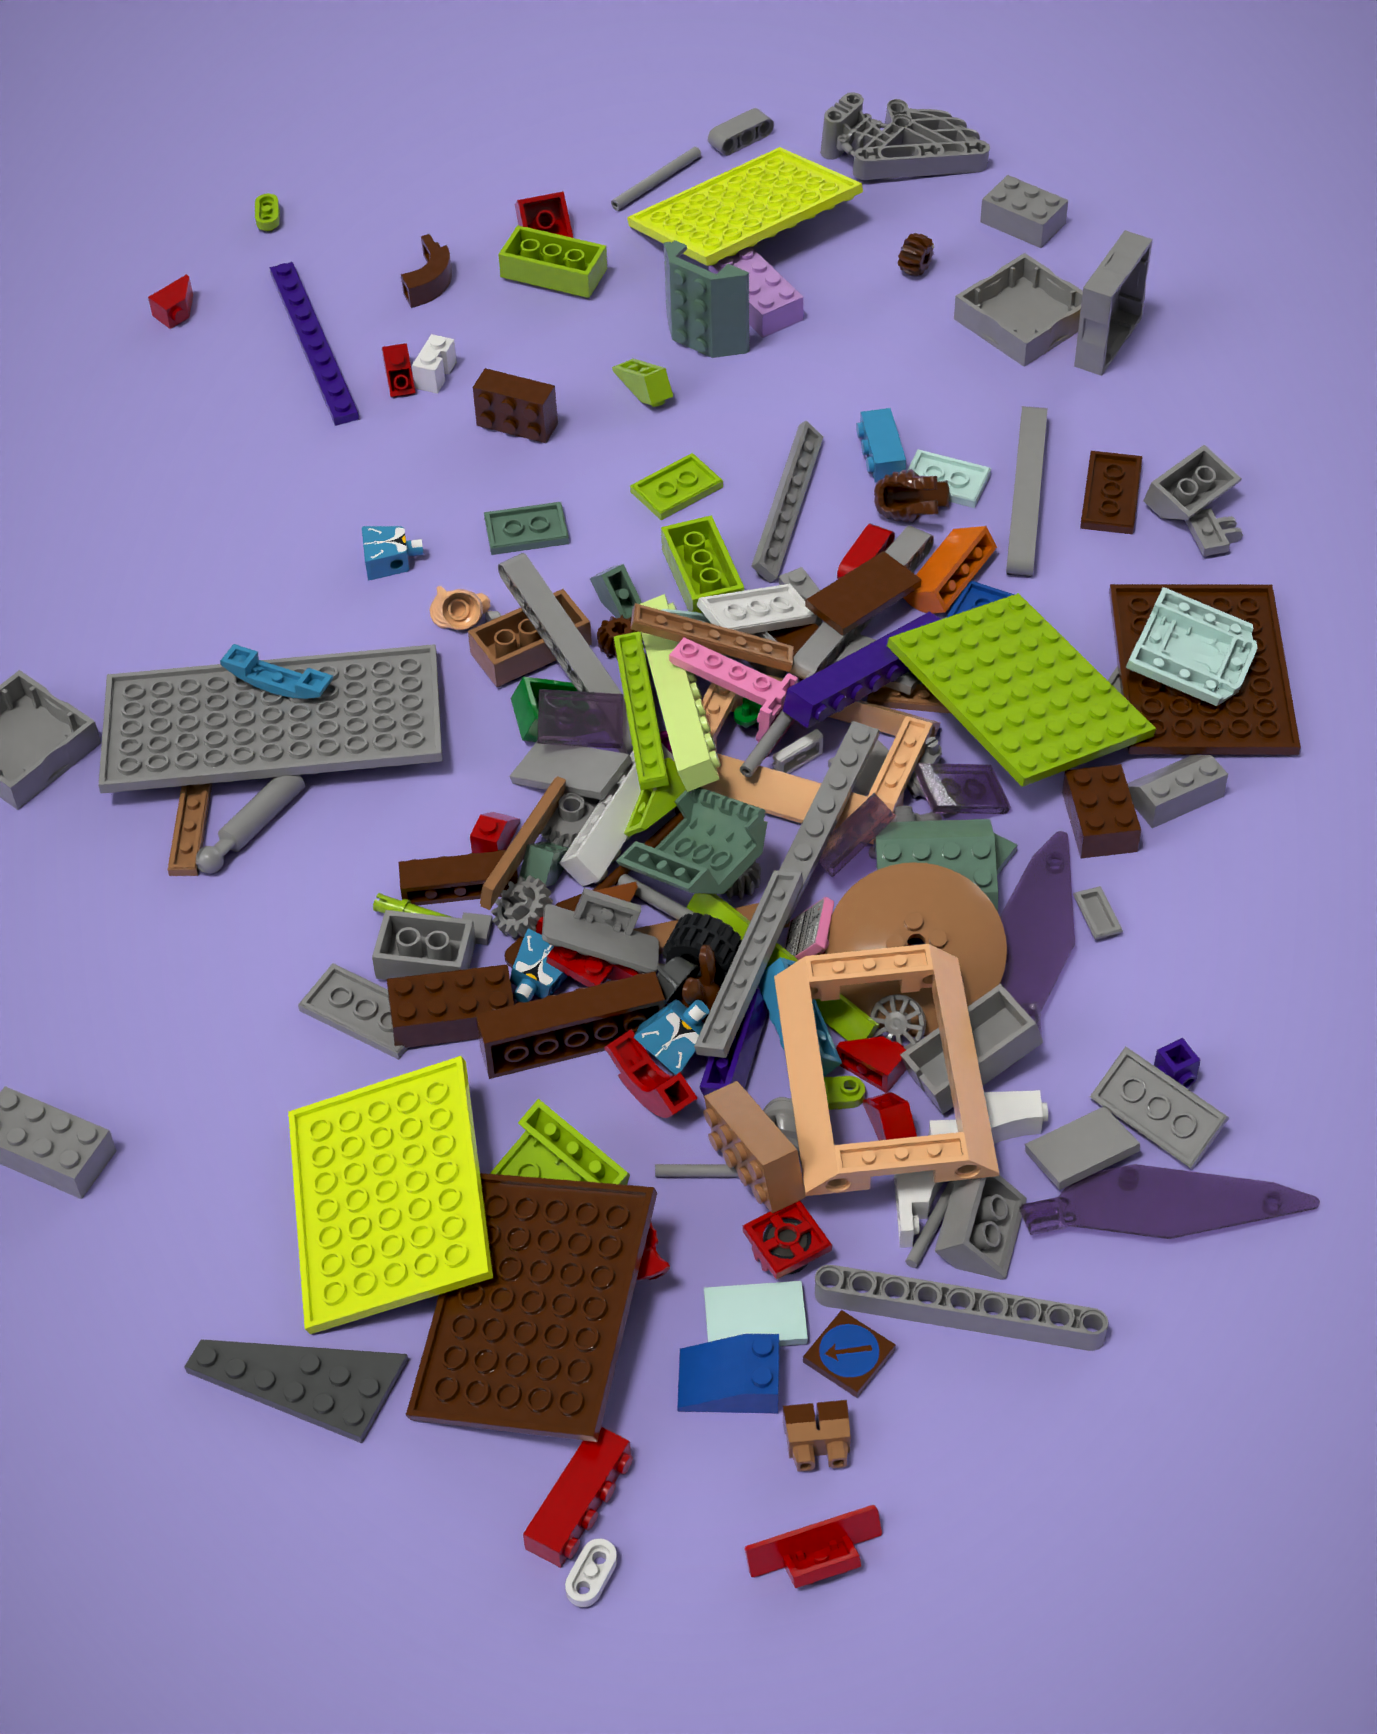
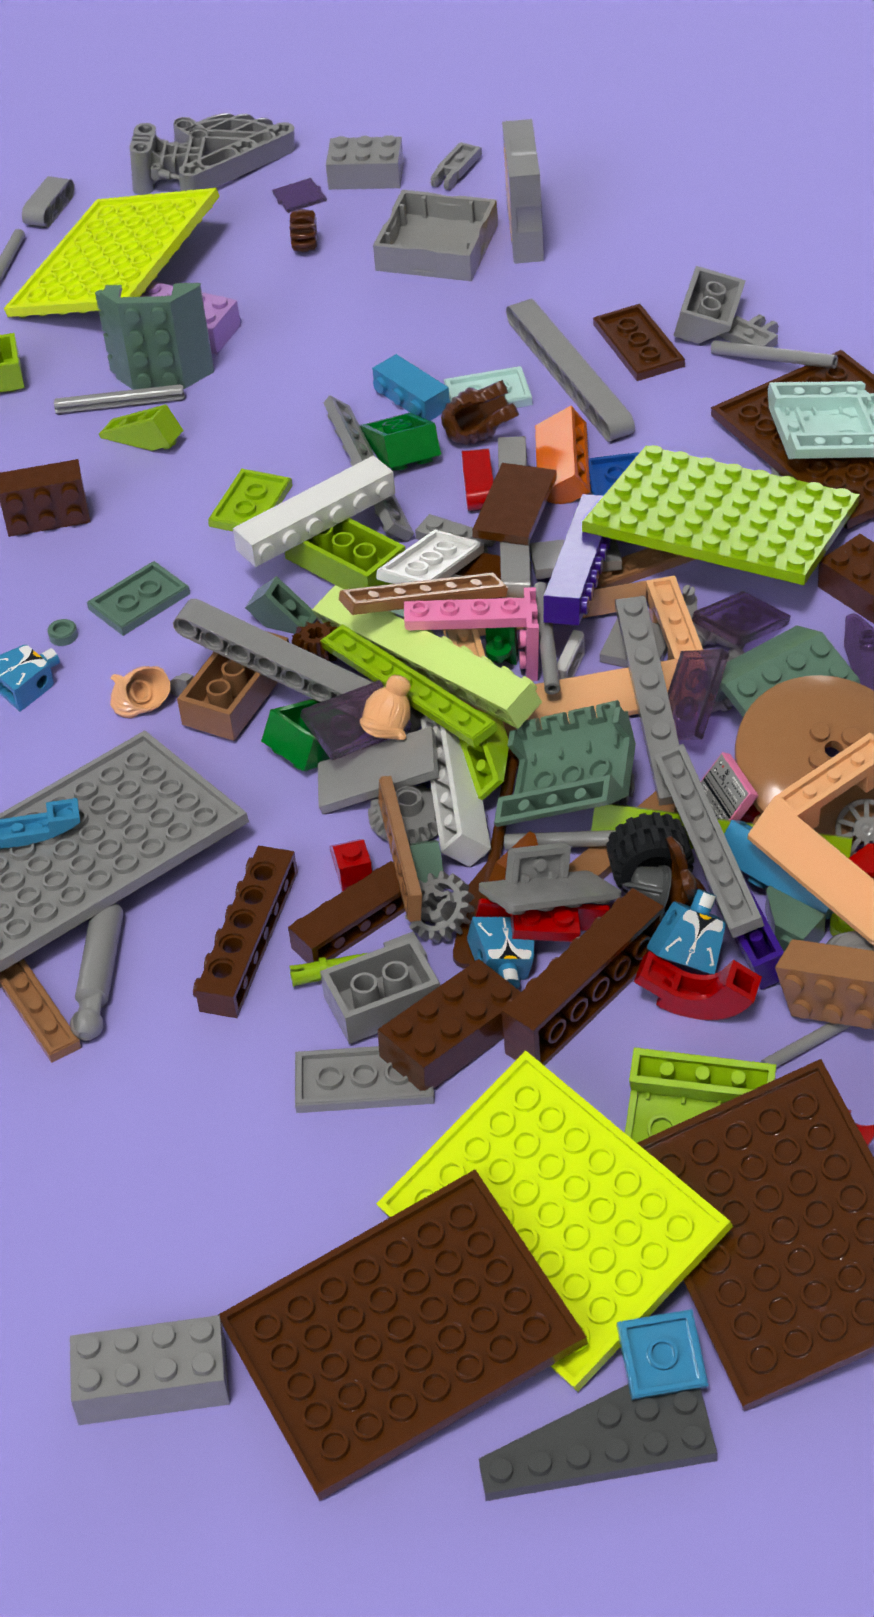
camera: 30 degrees left, 5 degrees down
(220, 1215) = (400, 1333): none -> reddish brown plate
(375, 848) = (245, 932): none -> reddish brown brick
(376, 1342) = (662, 1354): none -> dark azure tile
(448, 529) = (62, 632): none -> sand green tile
(603, 724) = (388, 710): none -> light nougat hair
(652, 343) = (119, 399): none -> light grey axle
(694, 521) = (314, 511): none -> white brick
(769, 1069) = (793, 919): none -> sand green slope
(834, 489) = (402, 440): none -> green slope
(950, 217) = (299, 195): none -> clear purple piece
(1094, 248) = (455, 165): none -> light grey hinge
(1209, 561) = (774, 354): none -> light grey piece

